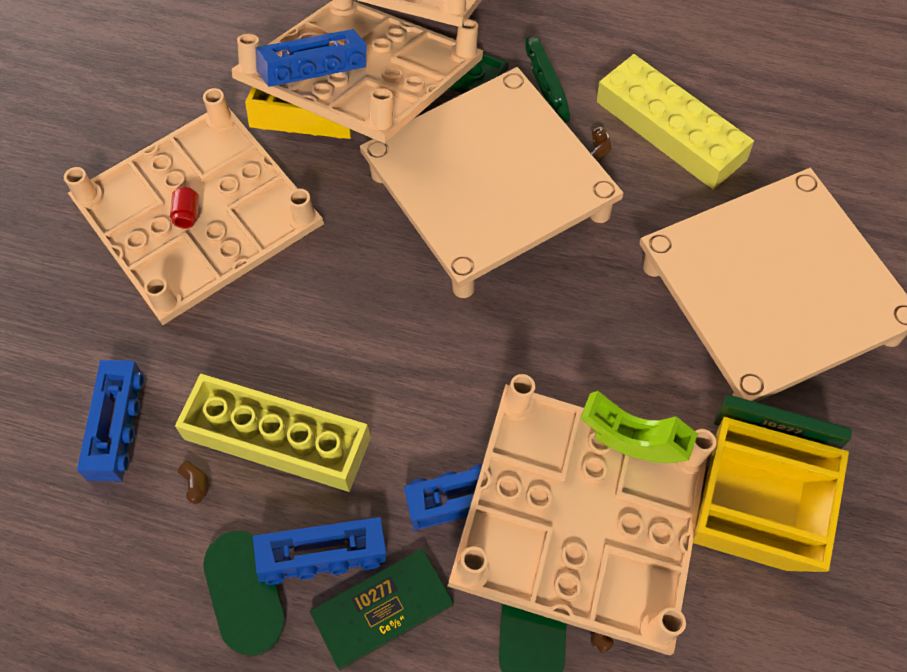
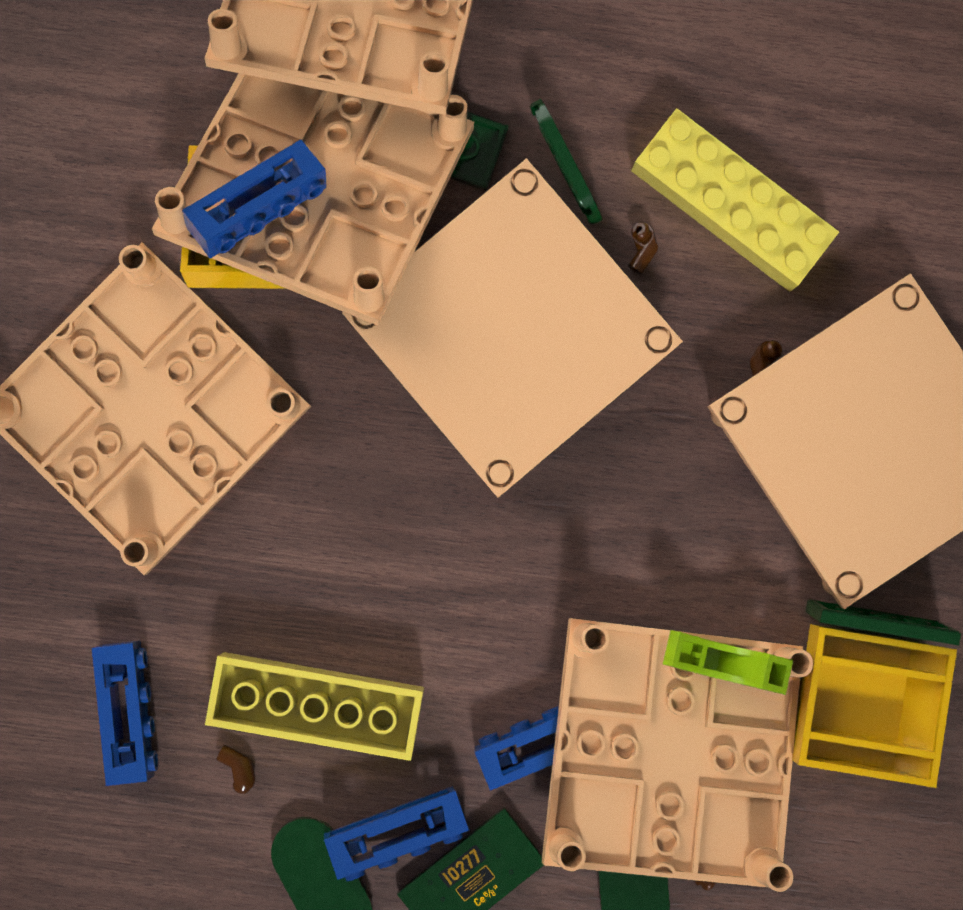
camera: 15 degrees left, 25 degrees up
(184, 207) = (133, 418): red brick -> none

